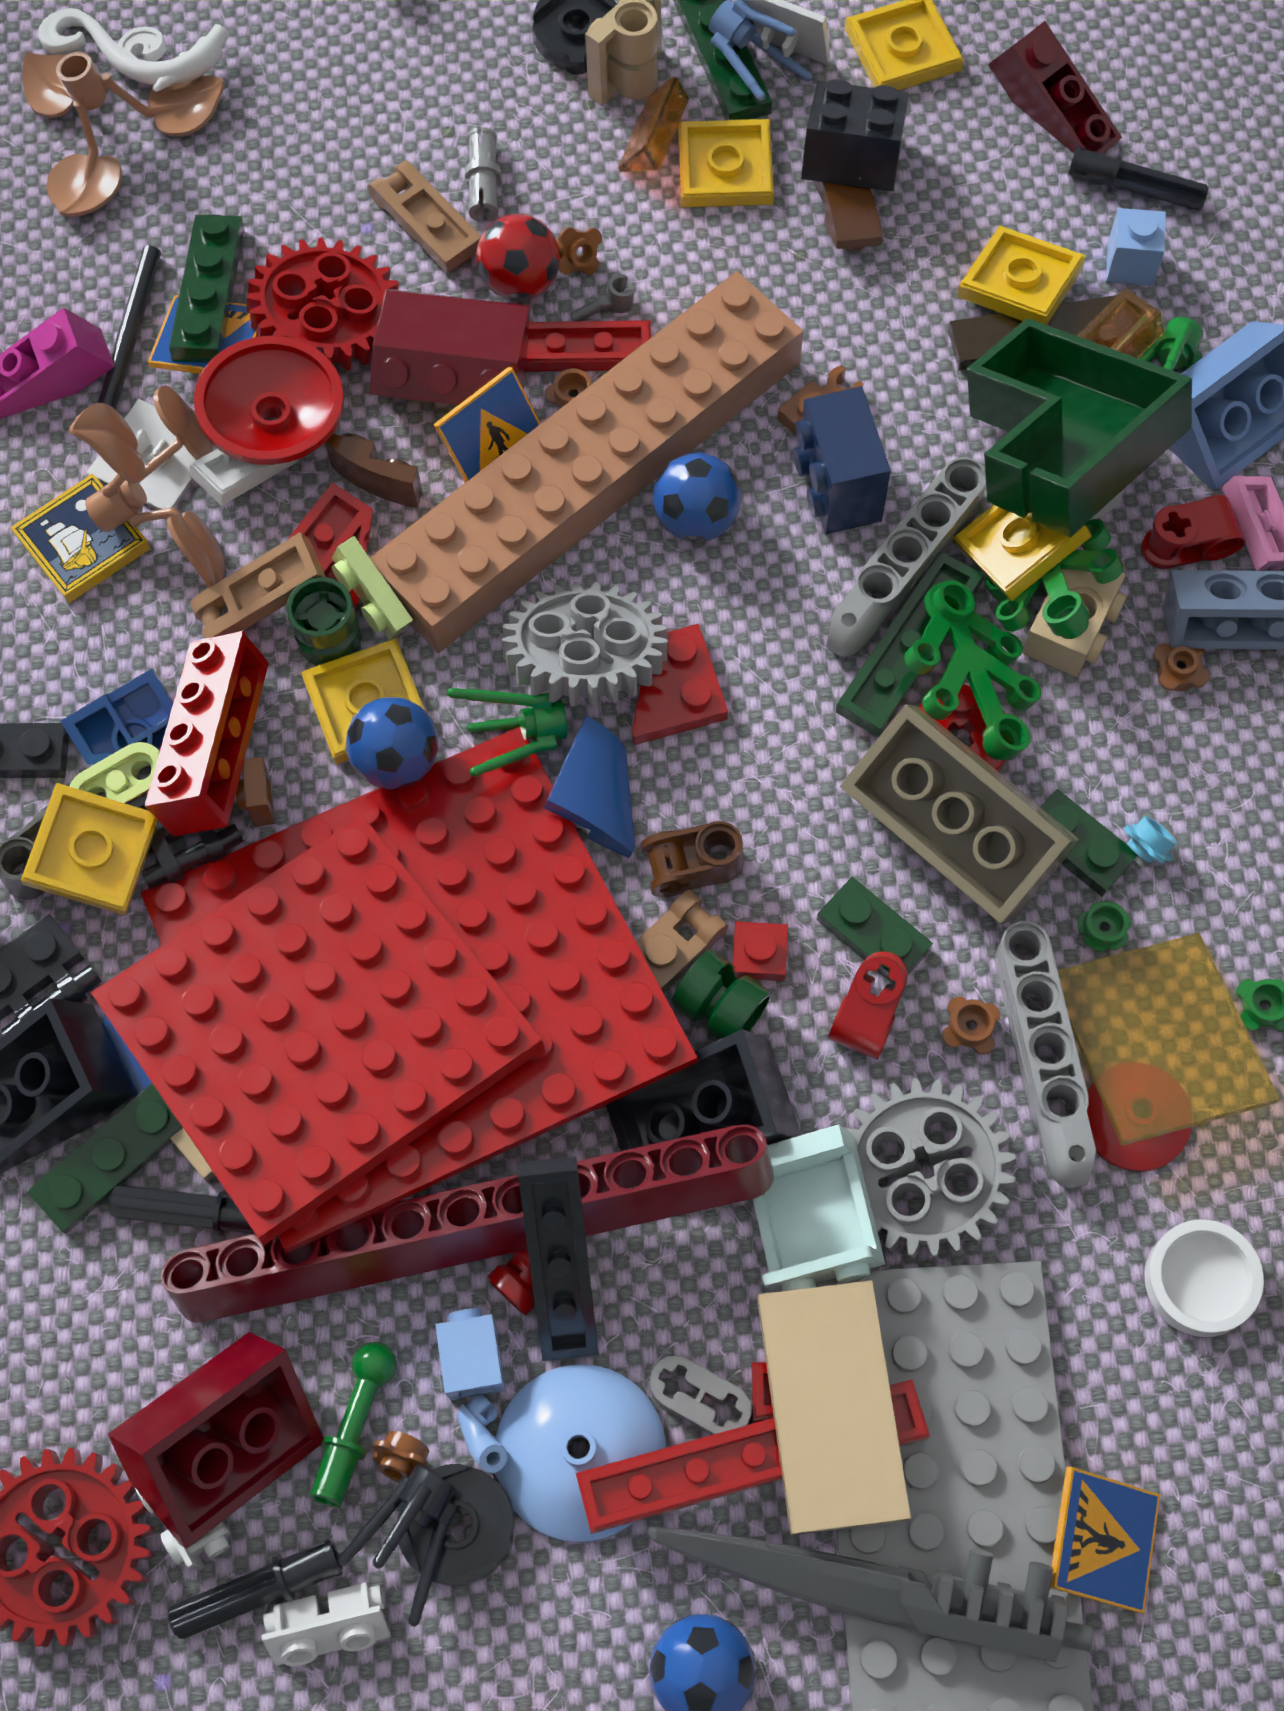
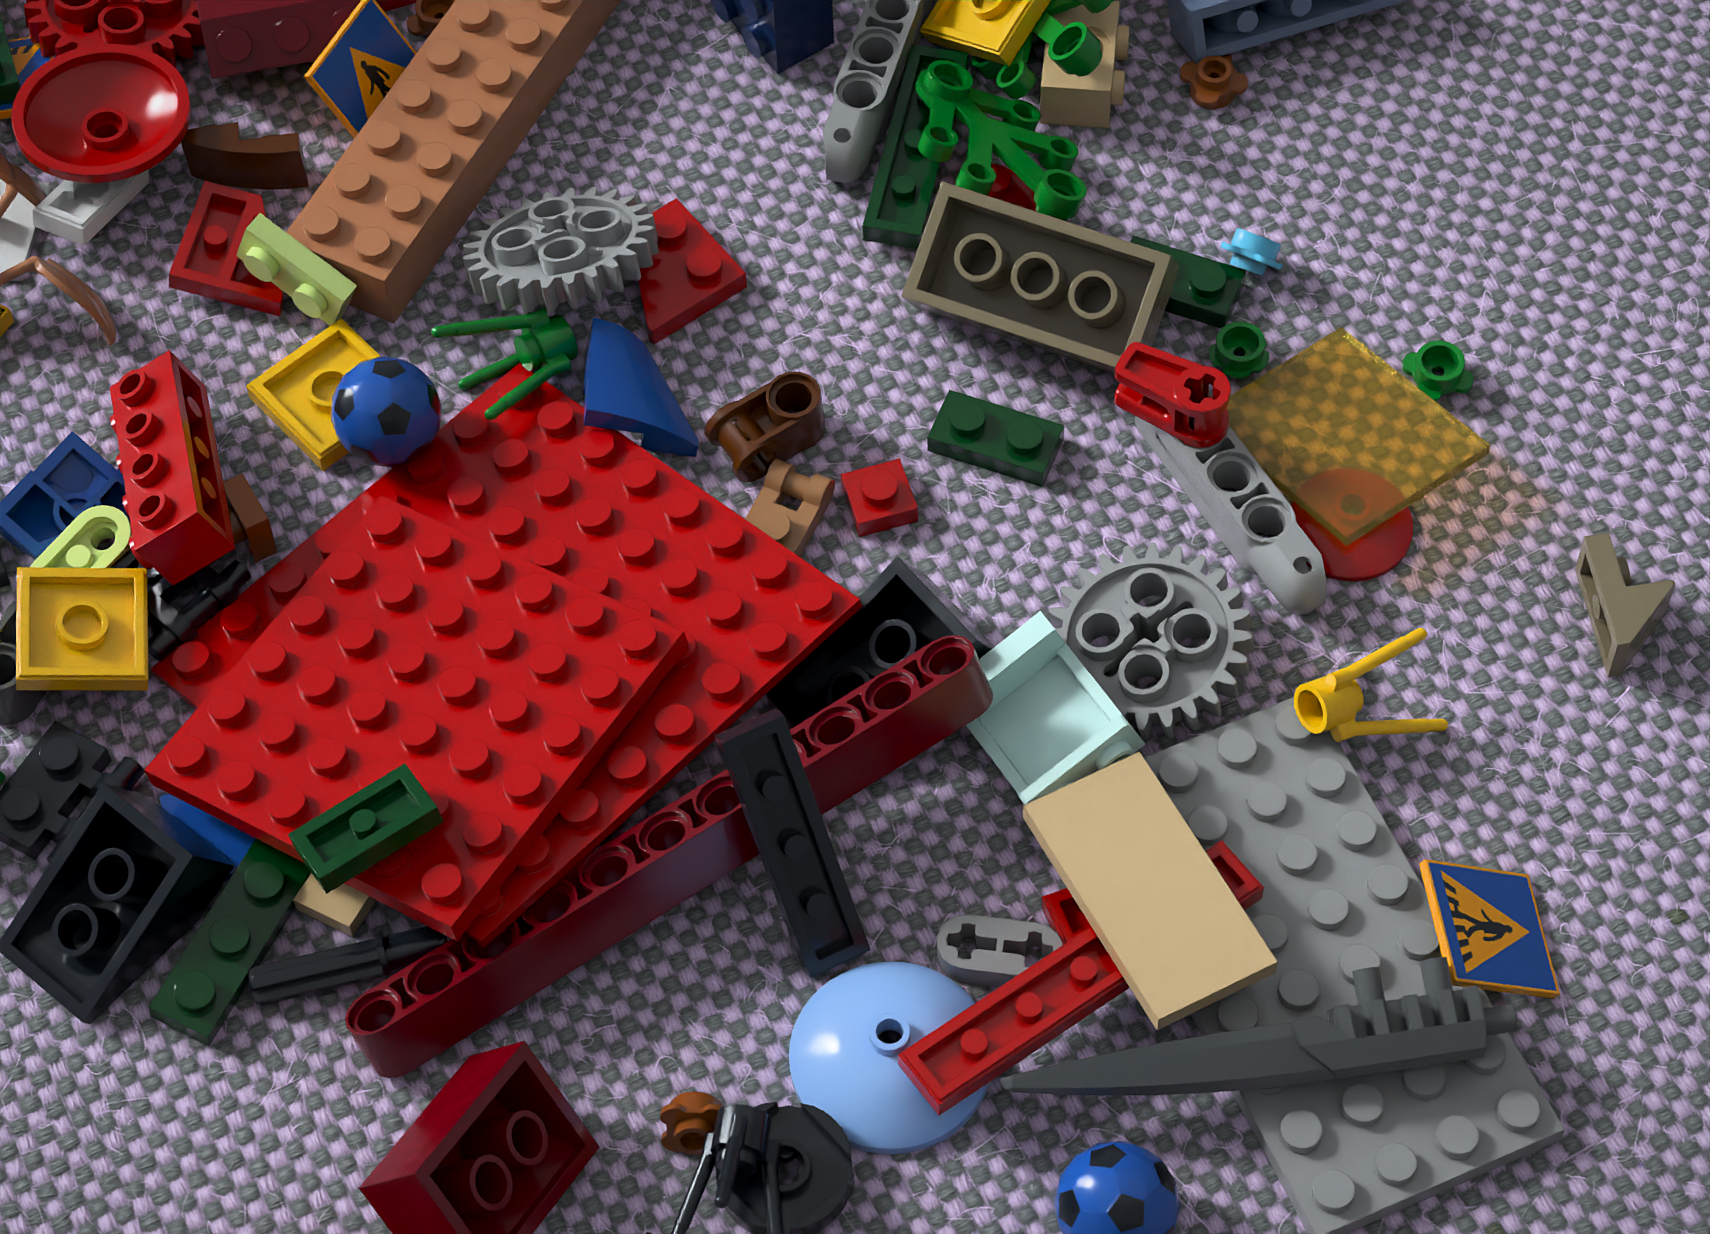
camera: 20 degrees left, 10 degrees down
(221, 1129) = (365, 828): none -> dark green plate
(256, 588) = (165, 308): medium nougat plate -> none
(323, 620) = (253, 320): dark green wheel -> none
(372, 1367) = (622, 1054): green pin -> none
(470, 1354) = (730, 996): light blue brick -> none
(479, 1441) = (777, 1081): light blue arm -> none
(515, 1282) = (750, 905): red wheel -> none
(697, 497) = (625, 69): blue piece -> none
(719, 997) = (856, 548): dark green wheel -> none
(867, 1012) = (1023, 511): red piece -> none
(982, 1014) = (1138, 477): dark orange plate -> none
(1022, 958) = (1171, 391): none -> red piece
(1052, 1287) = (1337, 698): none -> yellow plant
(1204, 1278) = (1485, 649): white piece -> none

